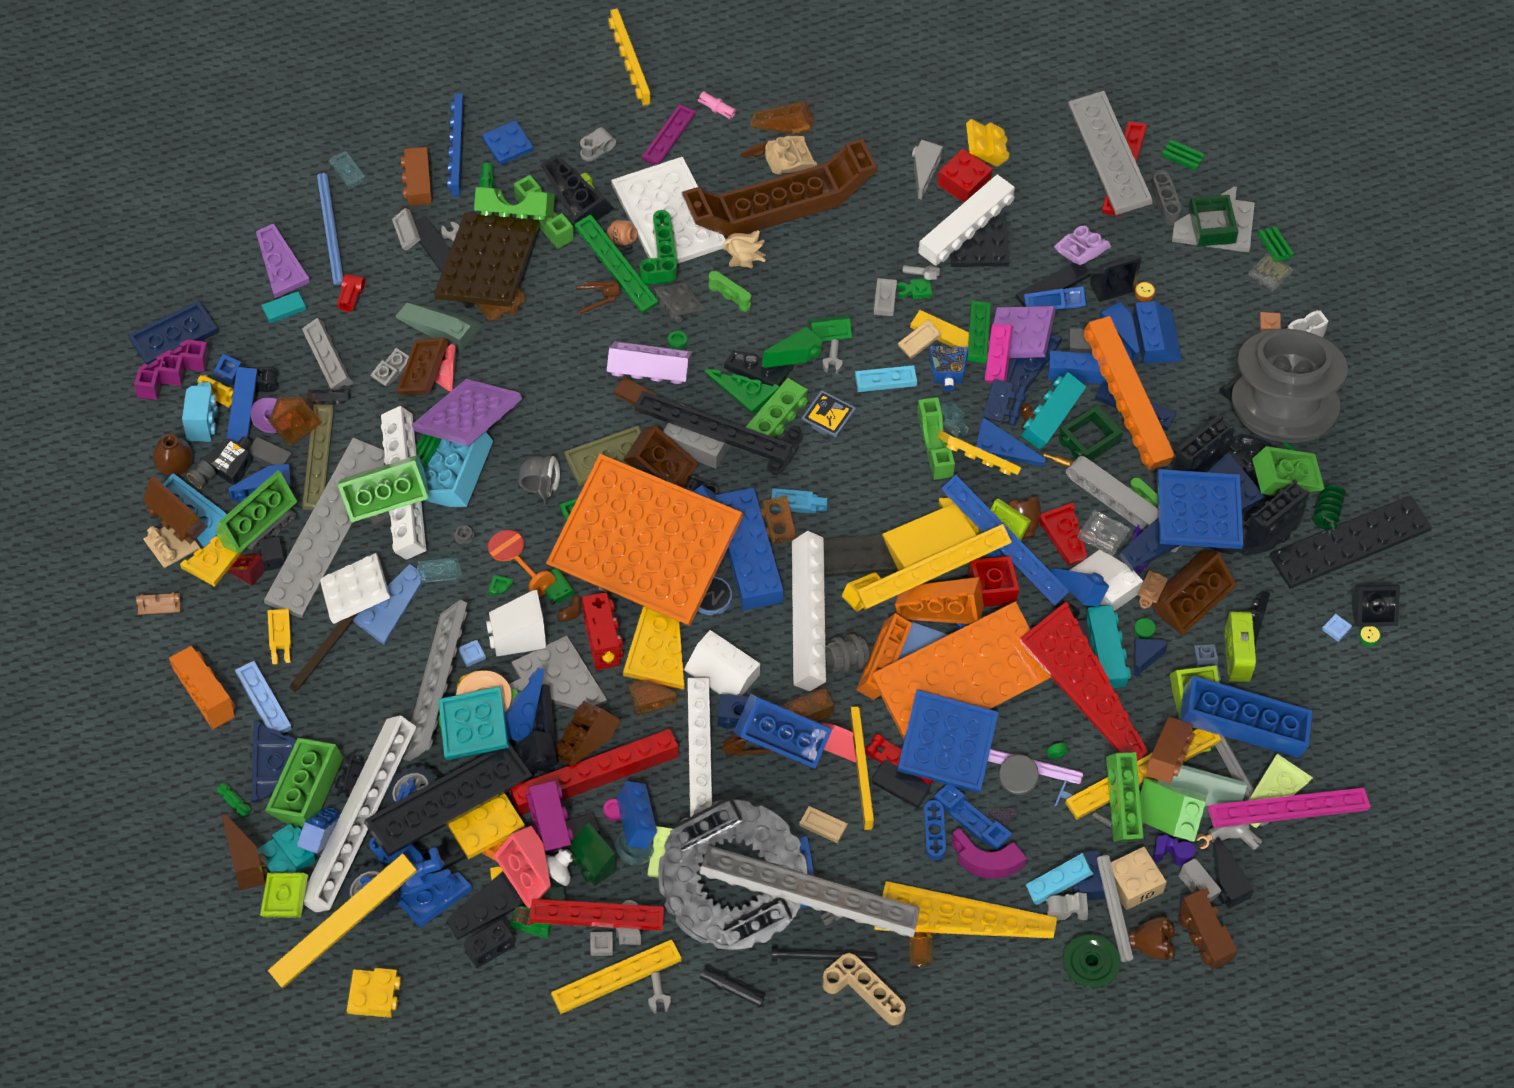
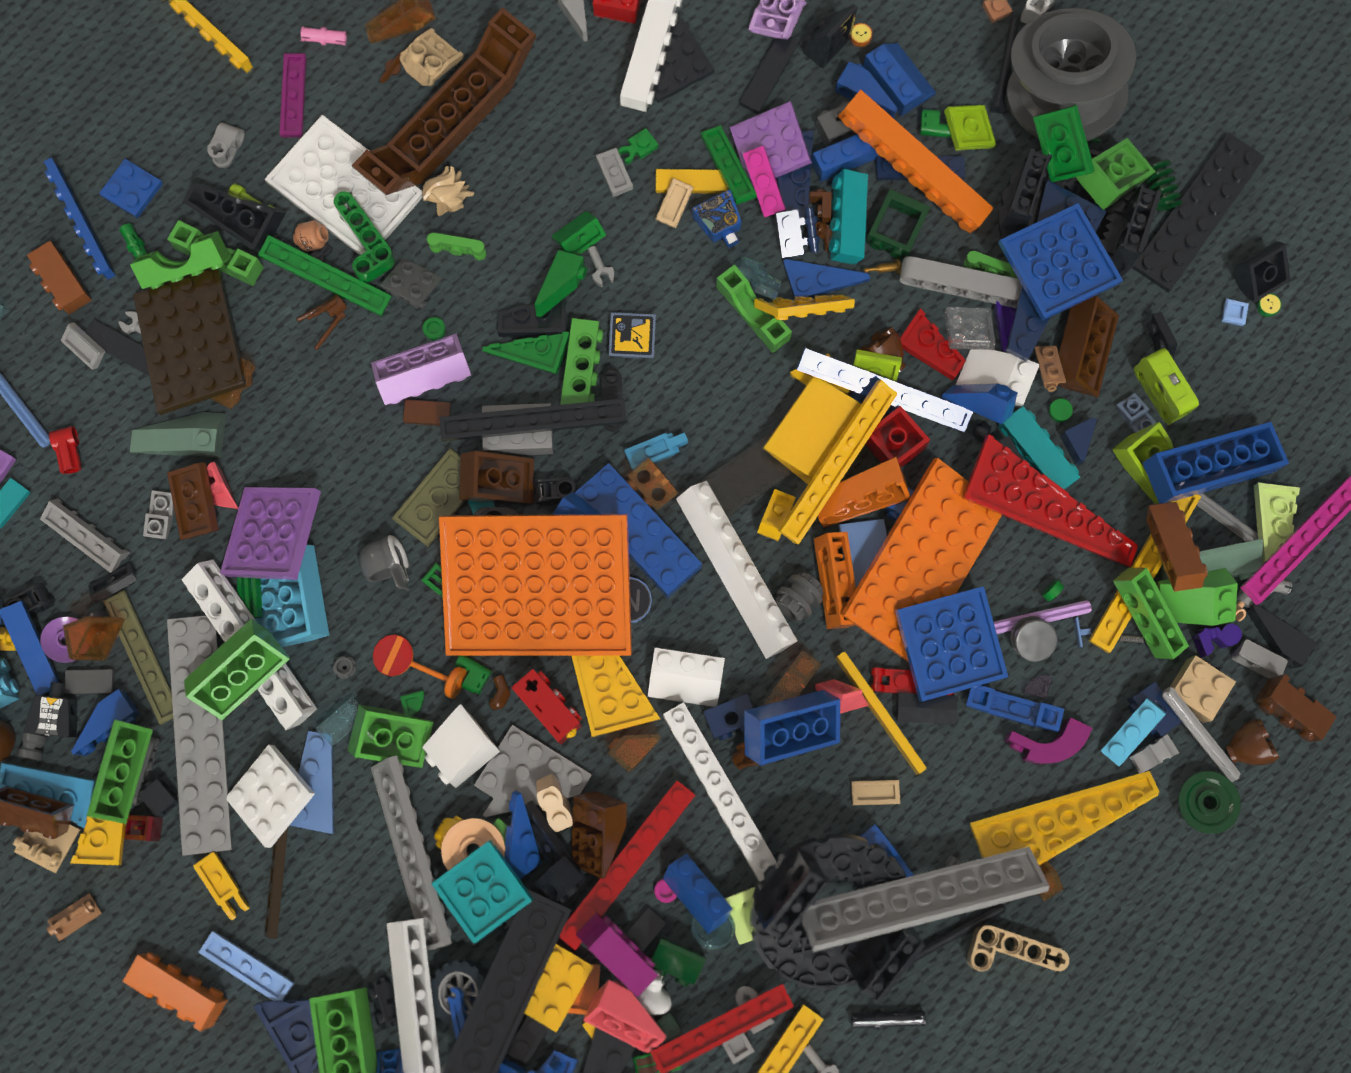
camera: 30 degrees left, 20 degrees up
(467, 585) = (387, 733): none -> bright green slope
(471, 653) = (427, 795): light blue tile -> none
(565, 692) = (554, 803): none -> tan brick
(885, 378) = (665, 265): medium azure plate -> none
(929, 273) = (643, 121): light grey bar -> none
(939, 822) = (993, 740): blue beam -> none
(1038, 390) = (823, 200): none -> reddish brown bracket
(1060, 298) = (785, 88): blue slope -> none
(1162, 380) = (930, 124): none -> green piece
(1193, 394) = (970, 127): none -> lime tile
(1250, 424) = (1064, 138): none -> green plate

